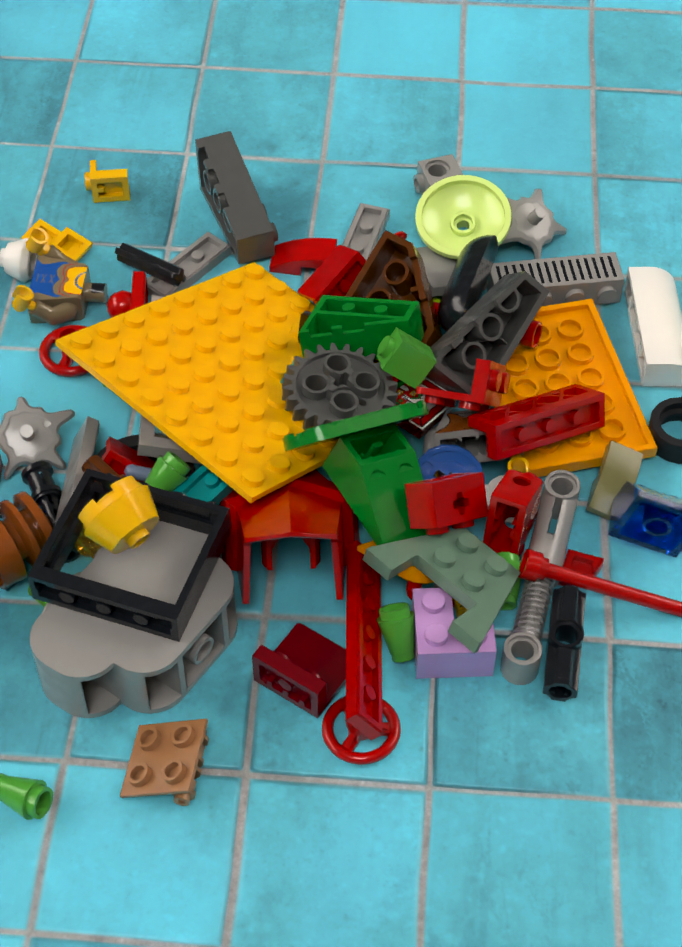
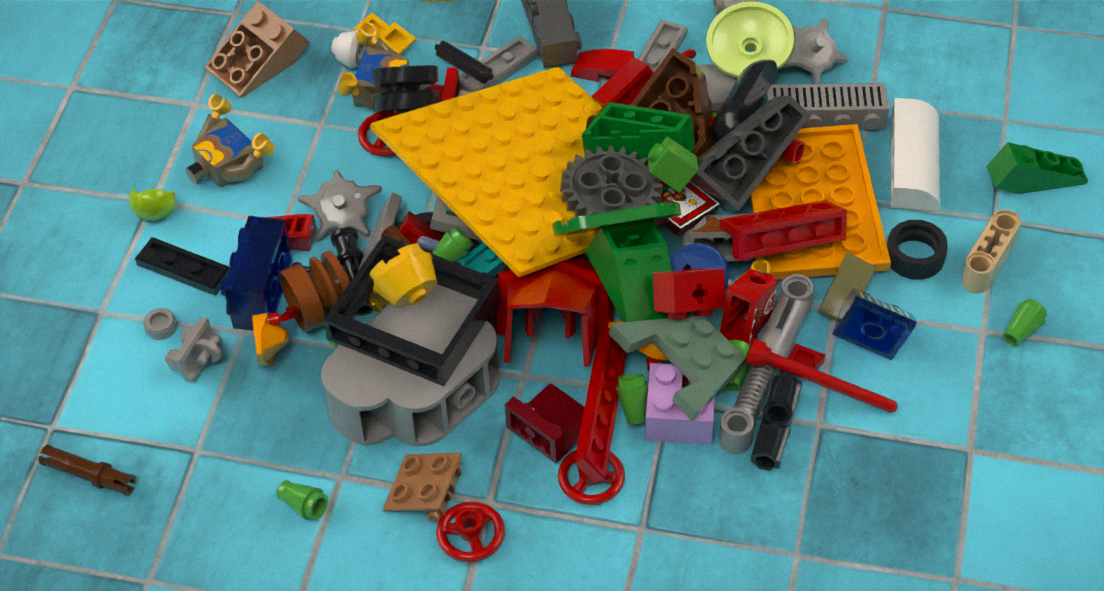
camera: 10 degrees right, 0 degrees up
(90, 297) = (405, 87): none -> black wheel
(228, 792) = (470, 515): none -> red piece
(487, 389) = (739, 197): red bracket -> none

